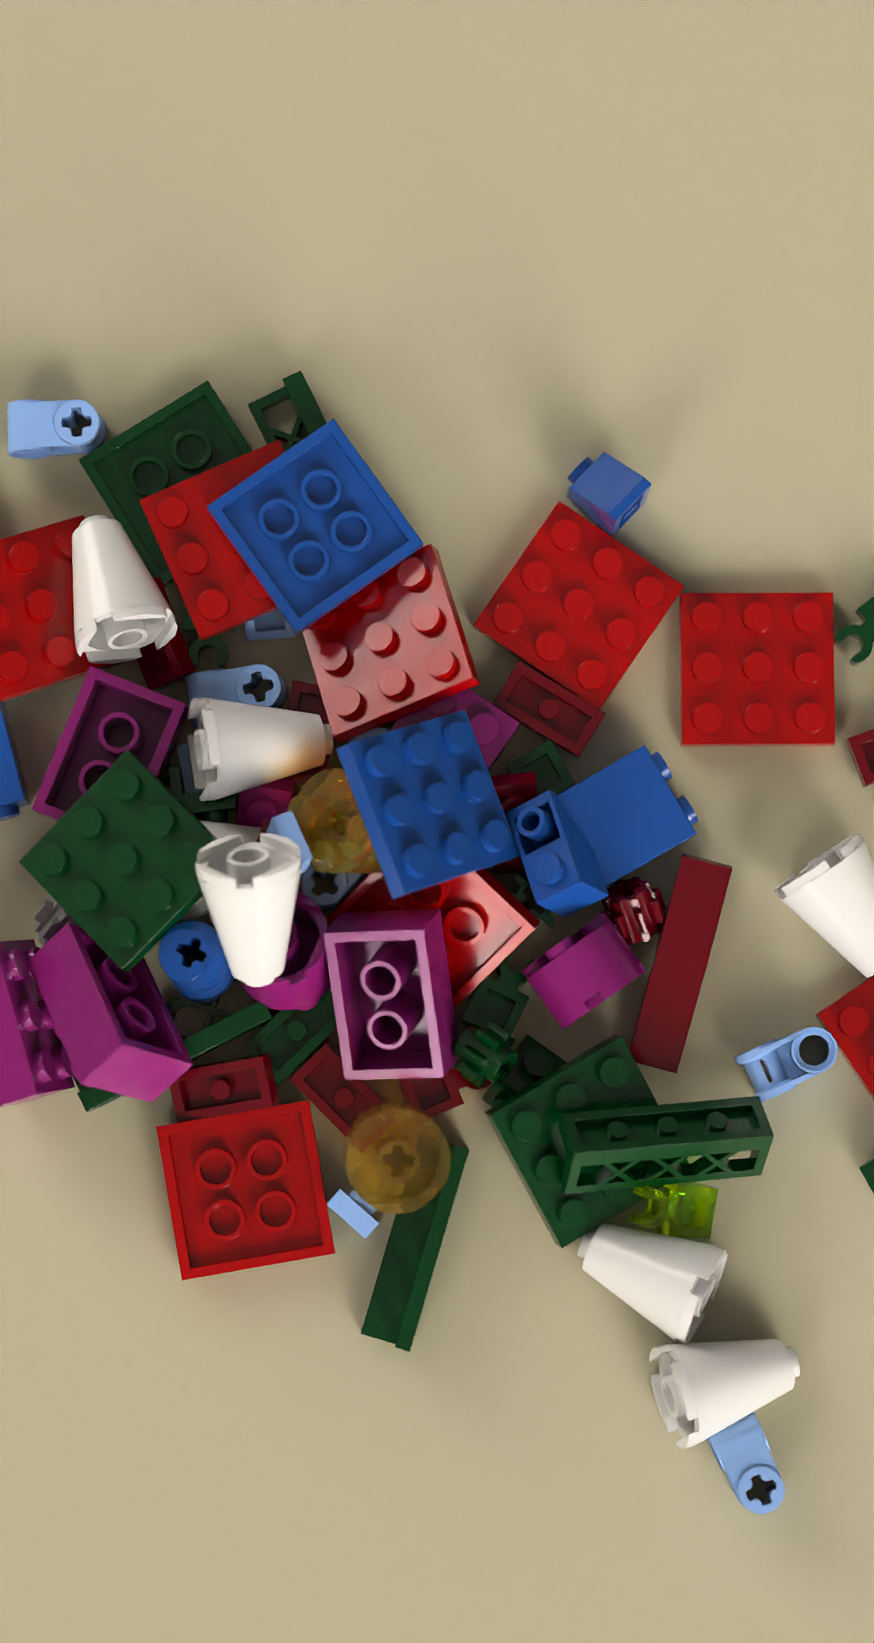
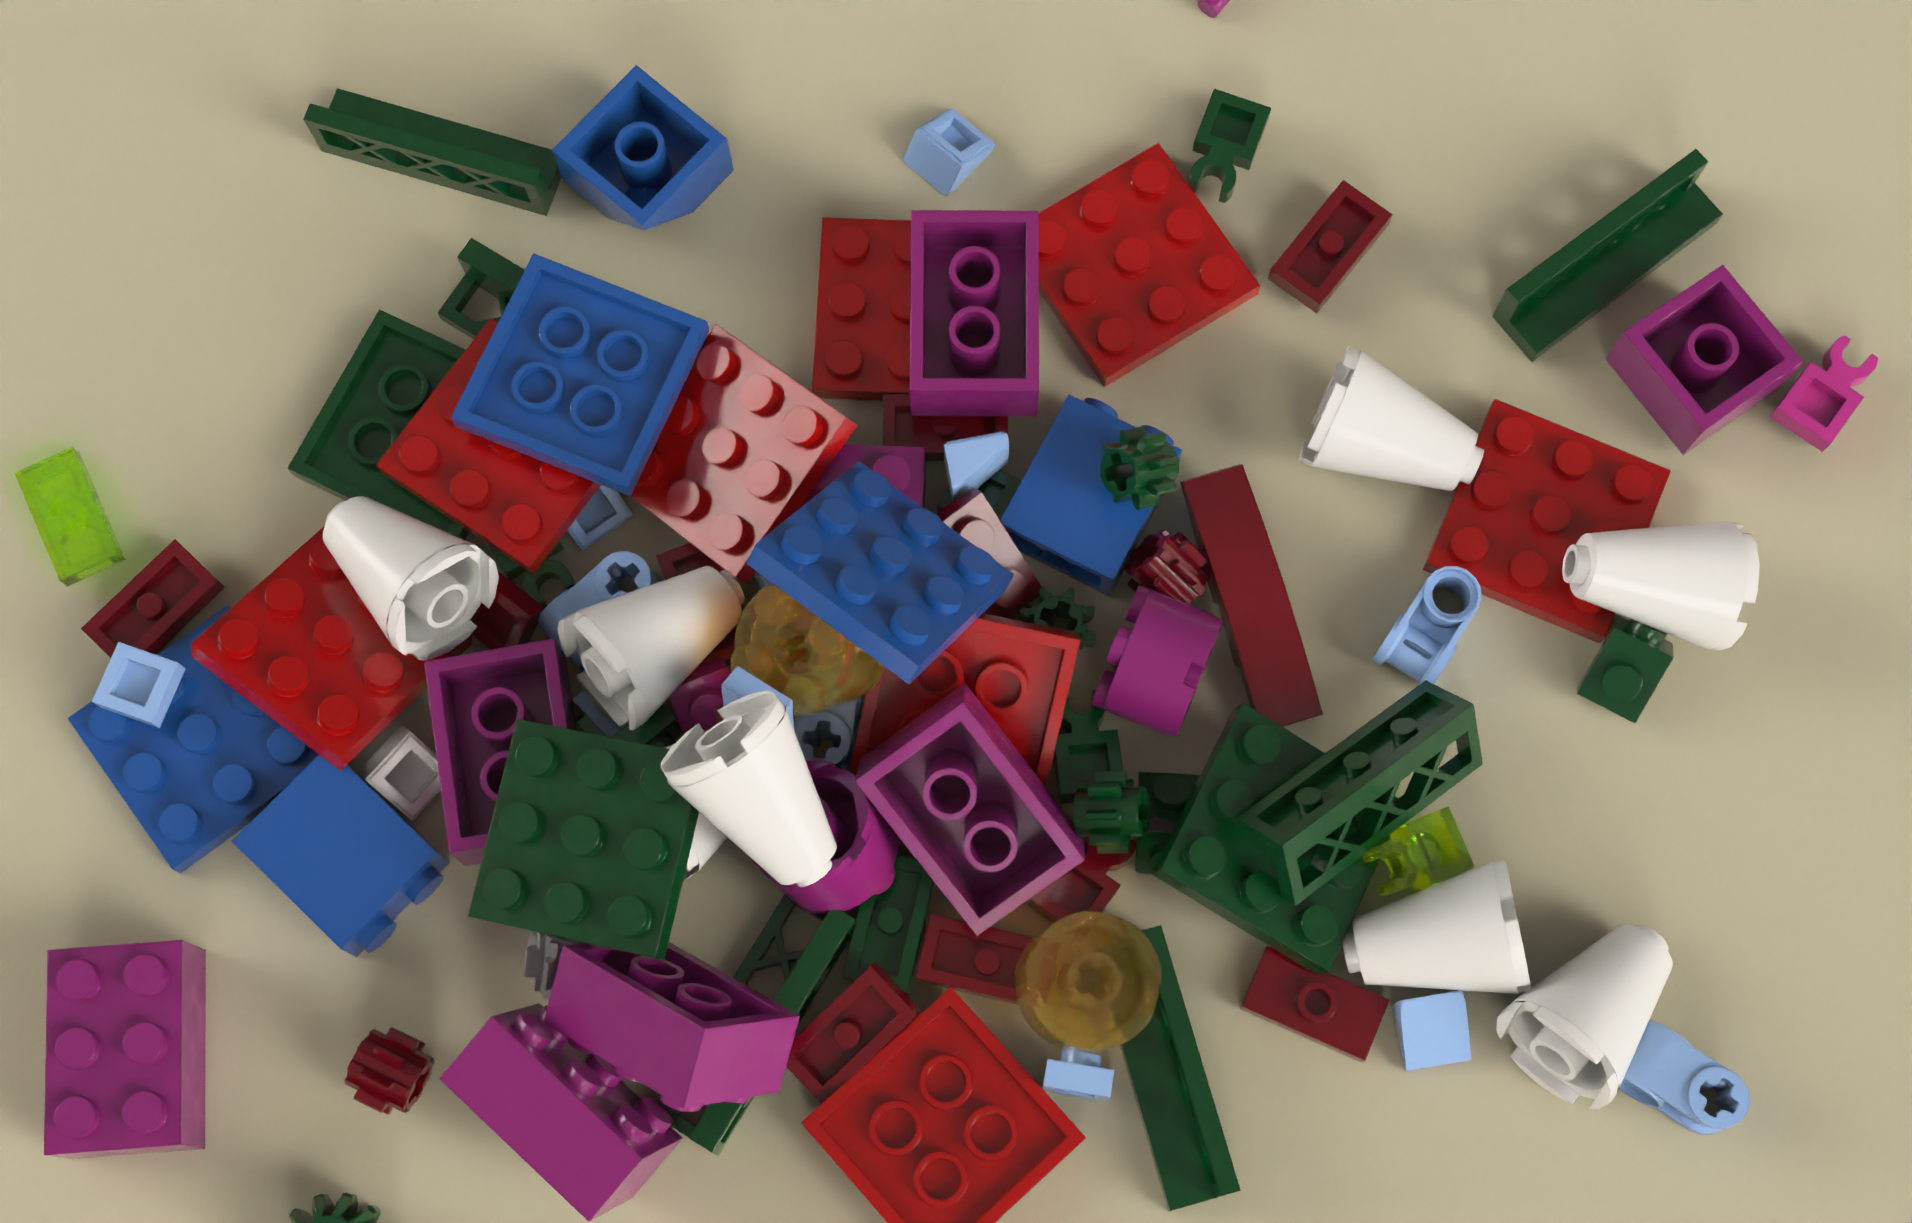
camera: 30 degrees left, 10 degrees down
(35, 723) = (404, 772): none -> white slope
(43, 428) = (237, 455): light blue piece -> none
(189, 944) = (734, 906): blue piece -> none
(320, 279) = (436, 150): none -> dark green fence
(458, 381) = (643, 155): none -> blue slope
(542, 1263) = (1315, 1005): none -> dark red plate
(546, 753) = (974, 460): none -> light blue slope
(556, 856) = (1052, 552): blue slope -> none
(607, 491) = (868, 172): blue slope -> none
(609, 1327) = (1432, 1030): none -> light blue slope
(612, 648) = (974, 313): none -> magenta brick
(653, 833) = (1139, 467): none -> dark green gear
(681, 502) = (947, 150): none -> light blue slope

